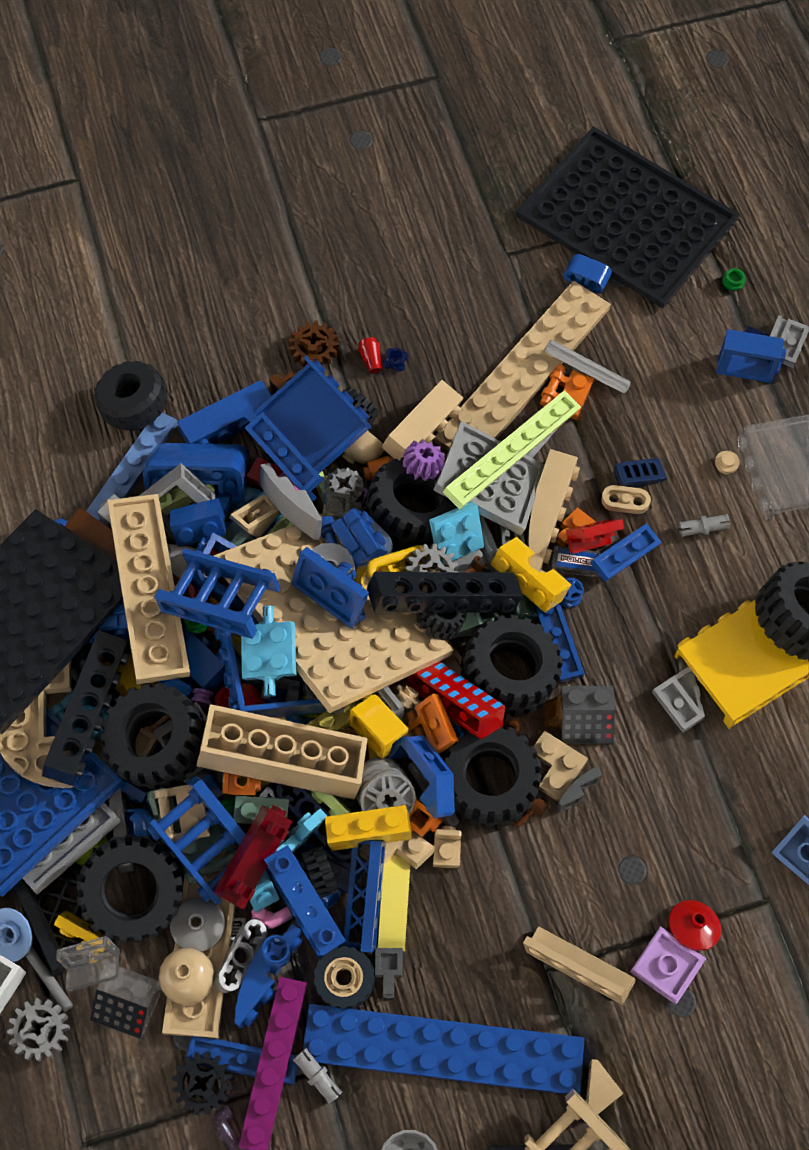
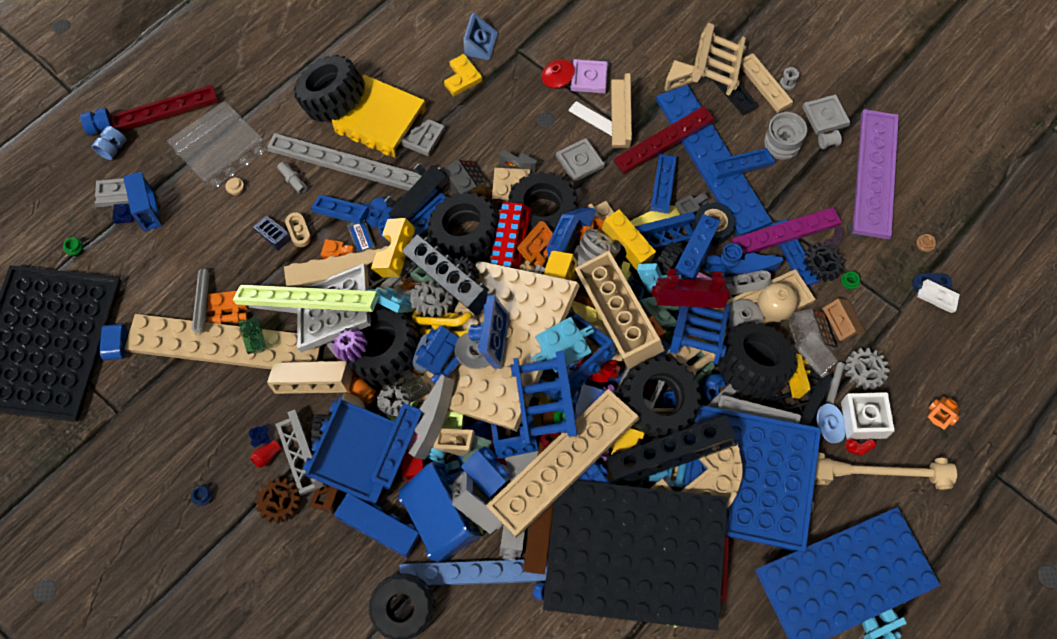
camera: 120 degrees left, 0 degrees up
(115, 1055) = (843, 319): none -> medium nougat panel
(155, 1096) = (854, 277): none -> green plate
(317, 1076) = (774, 208): light grey pin -> none
(366, 286) = (201, 495): none -> dark blue plate
(376, 392) = (304, 448): none -> light grey fence
(407, 1074) = (741, 163): none -> blue tile
(440, 952) = (663, 184): none -> blue tile
(504, 998) = (663, 140): none -> dark red plate
(506, 389) = (252, 335): none -> clear green hips
(539, 870) = (580, 160): none -> light grey plate
(590, 642) = (419, 194): none -> black brick
(592, 535) = (337, 229): red bracket -> none
(604, 931) = (592, 117): none -> white sticker
(605, 597) = (377, 211): none -> blue plate
(682, 600) = (342, 162): none -> light grey plate
(755, 806) = (465, 76): none -> yellow plate

